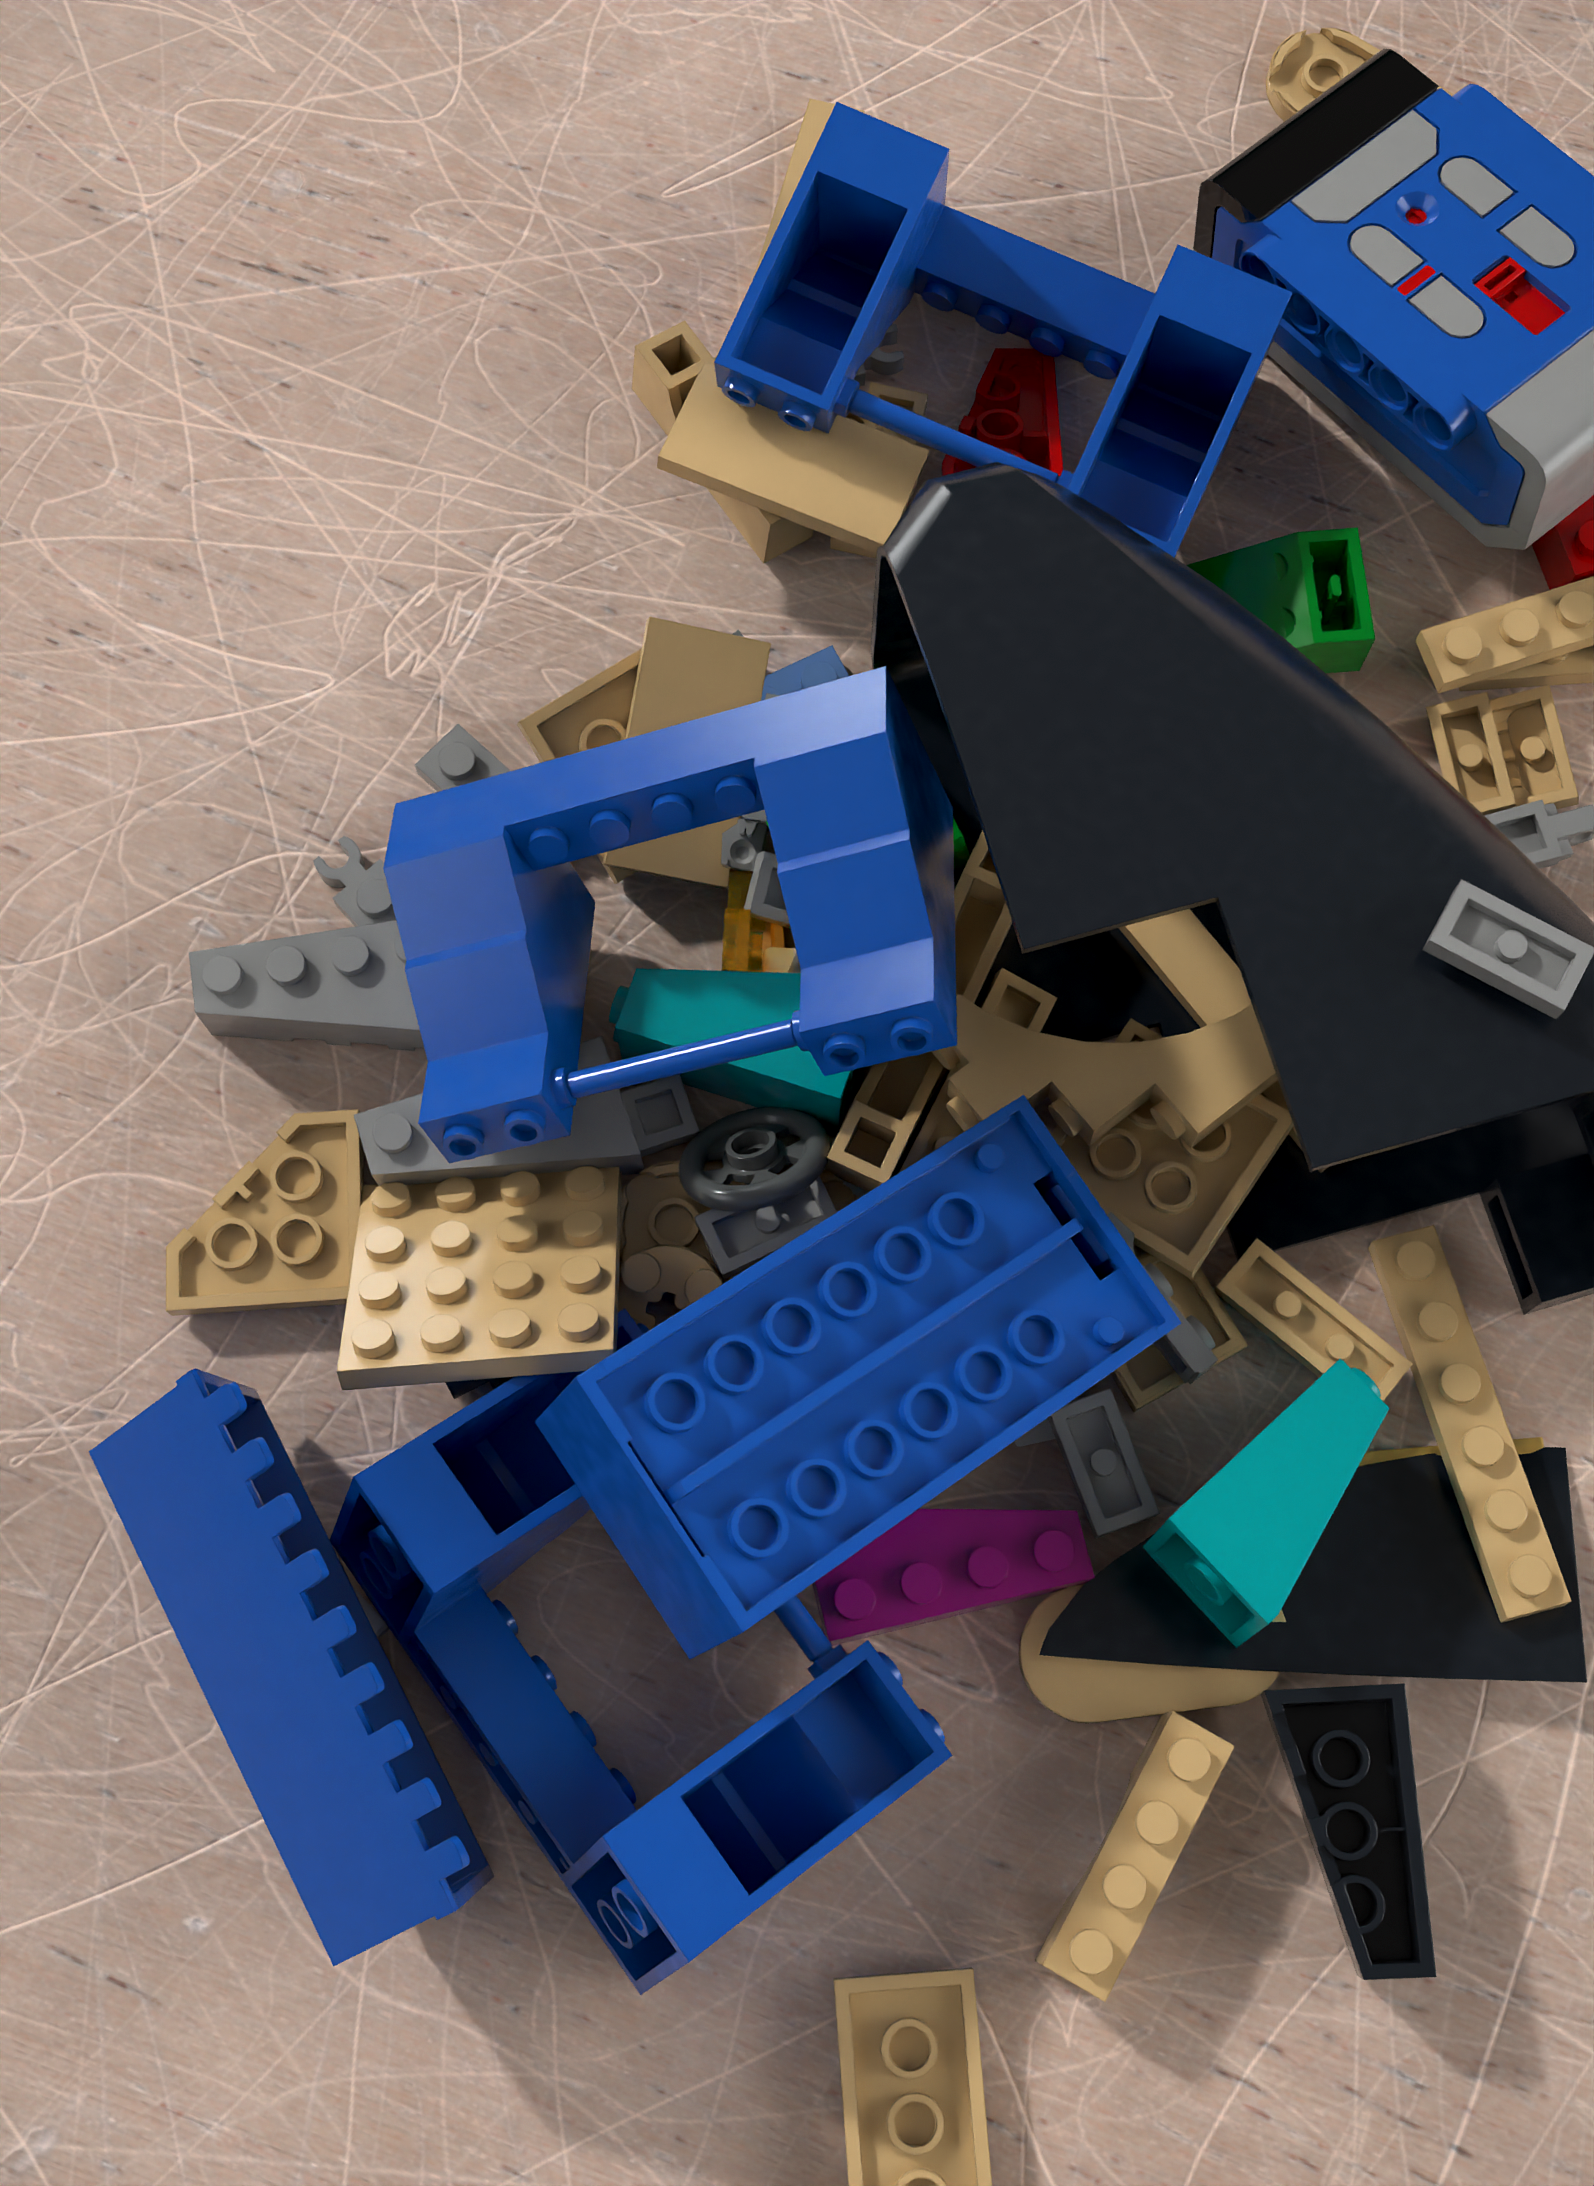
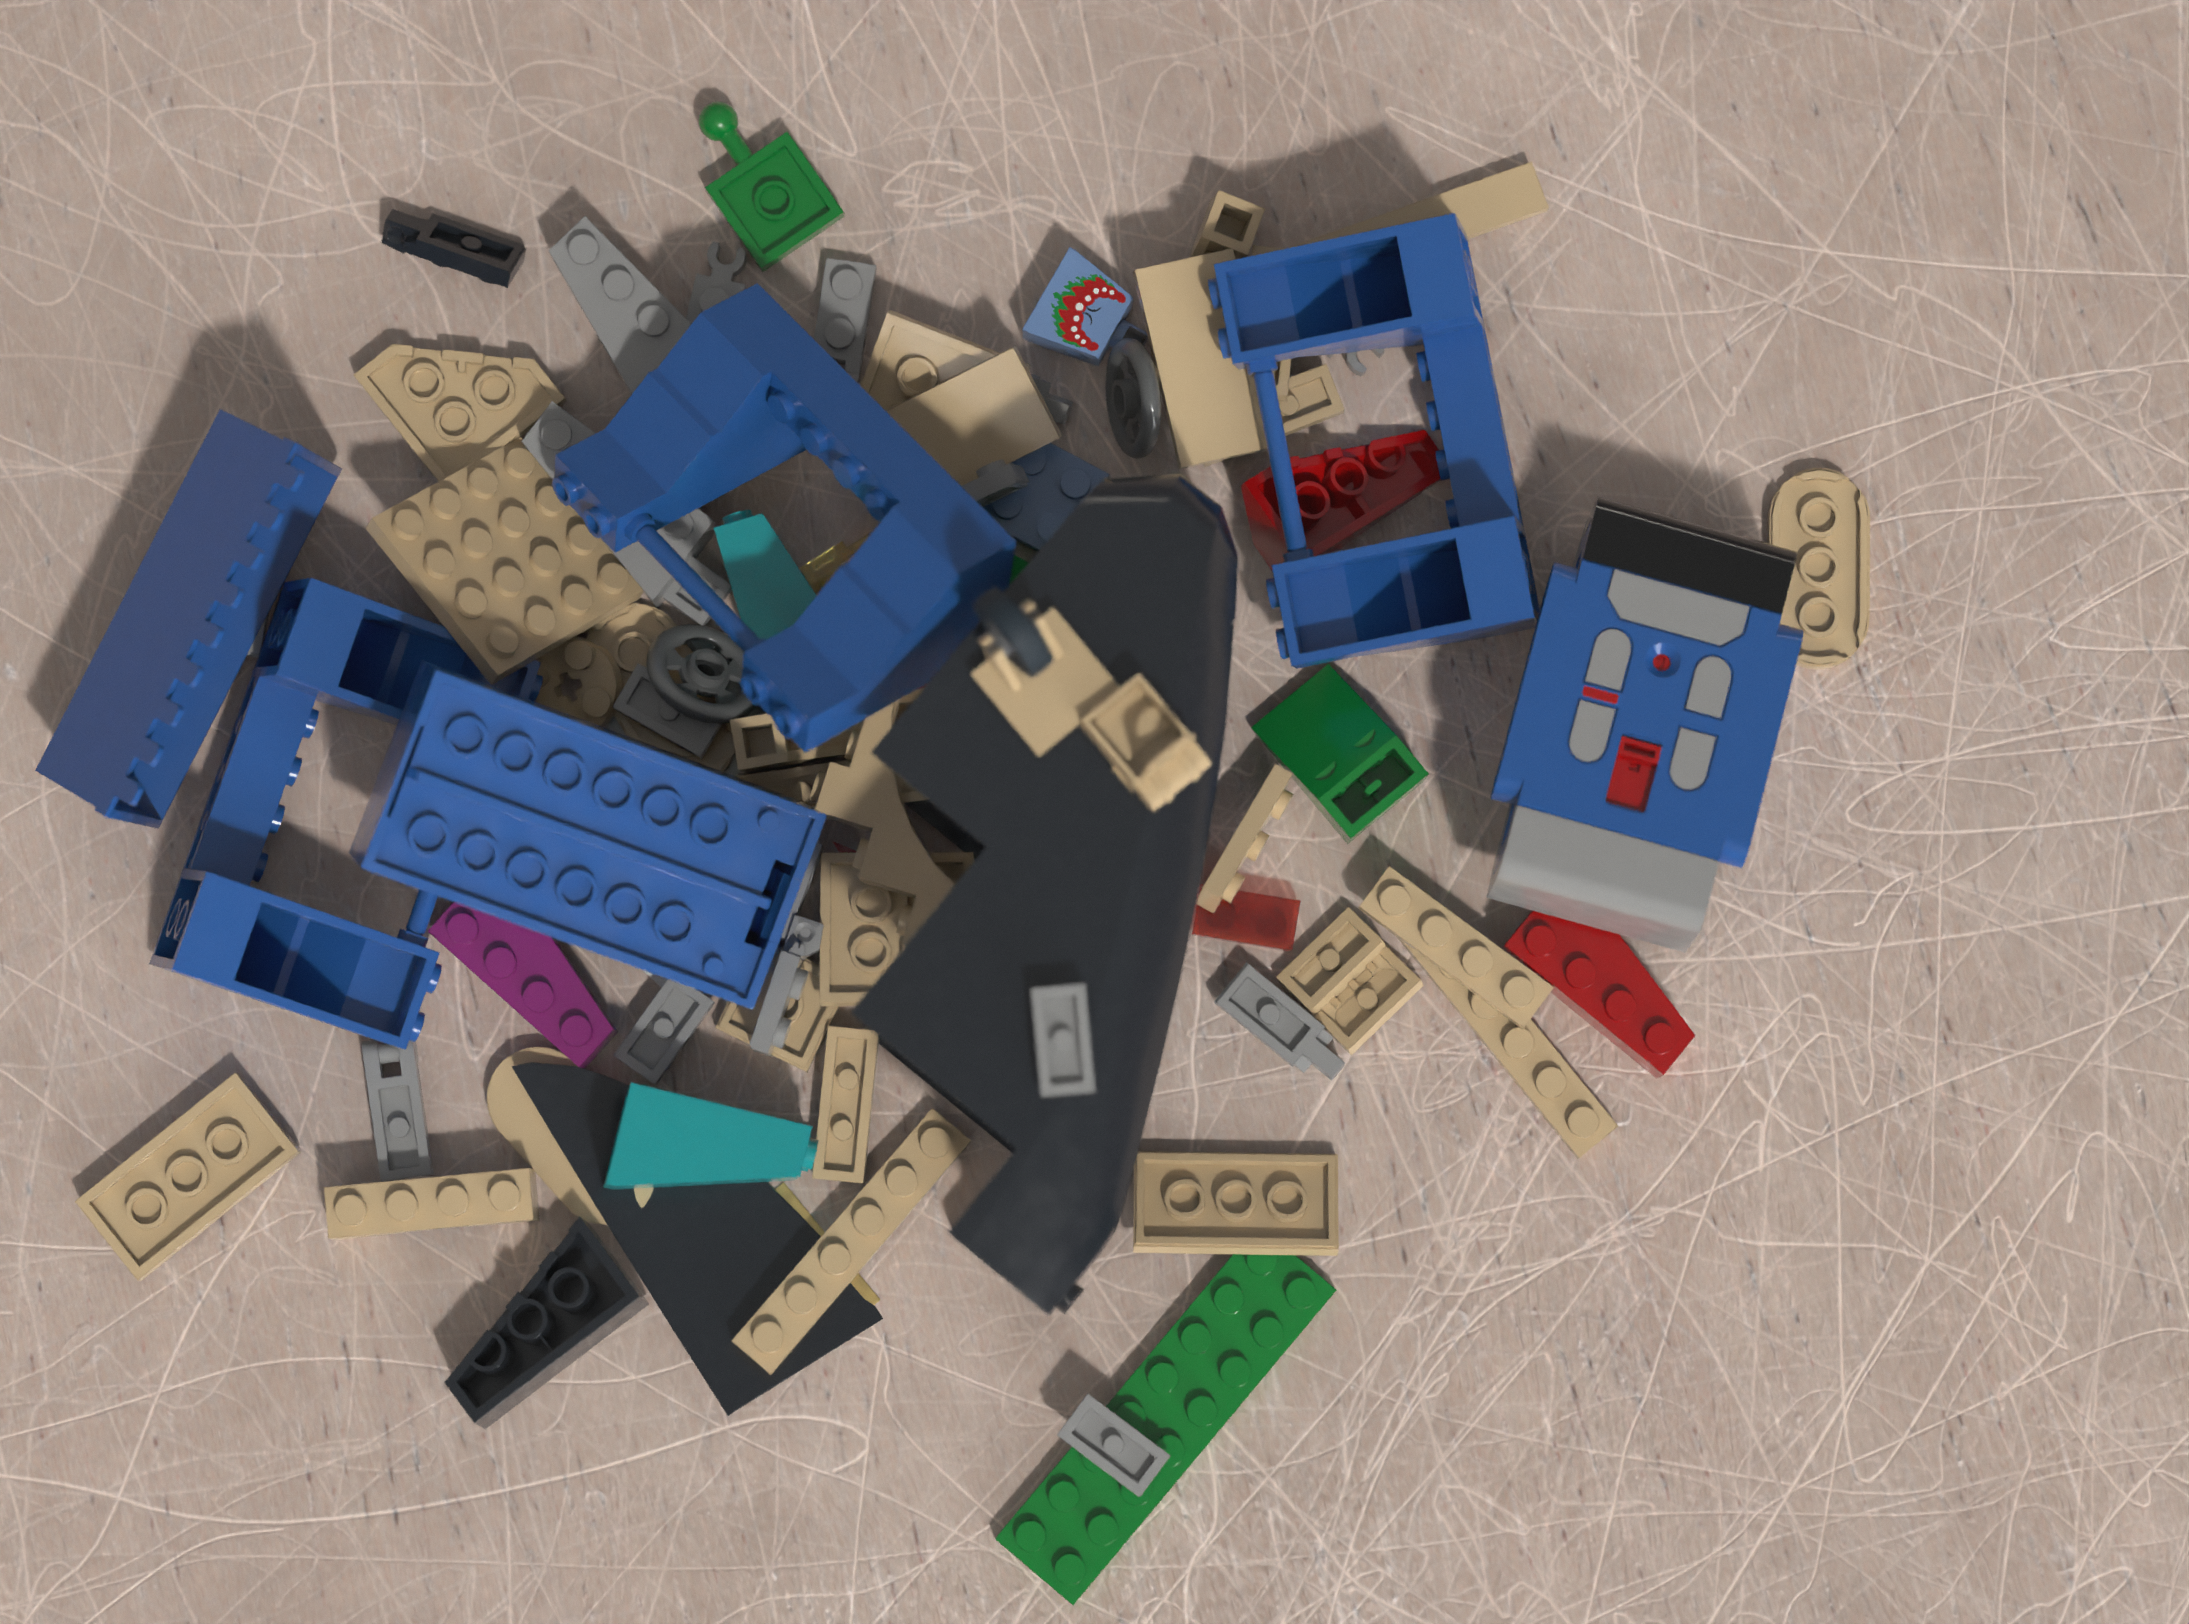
camera: 55 degrees right, 10 degrees up
(114, 1118) = (455, 246): none -> black hinge
(309, 778) = (771, 195): none -> green plate
(656, 562) = (1081, 312): none -> medium blue torso
(778, 560) = (1133, 398): none -> dark grey plate
(1004, 1824) = (397, 1112): none -> light grey plate
(1062, 705) = (1037, 670): none -> tan plate
(1220, 650) = (1145, 743): none -> tan piece

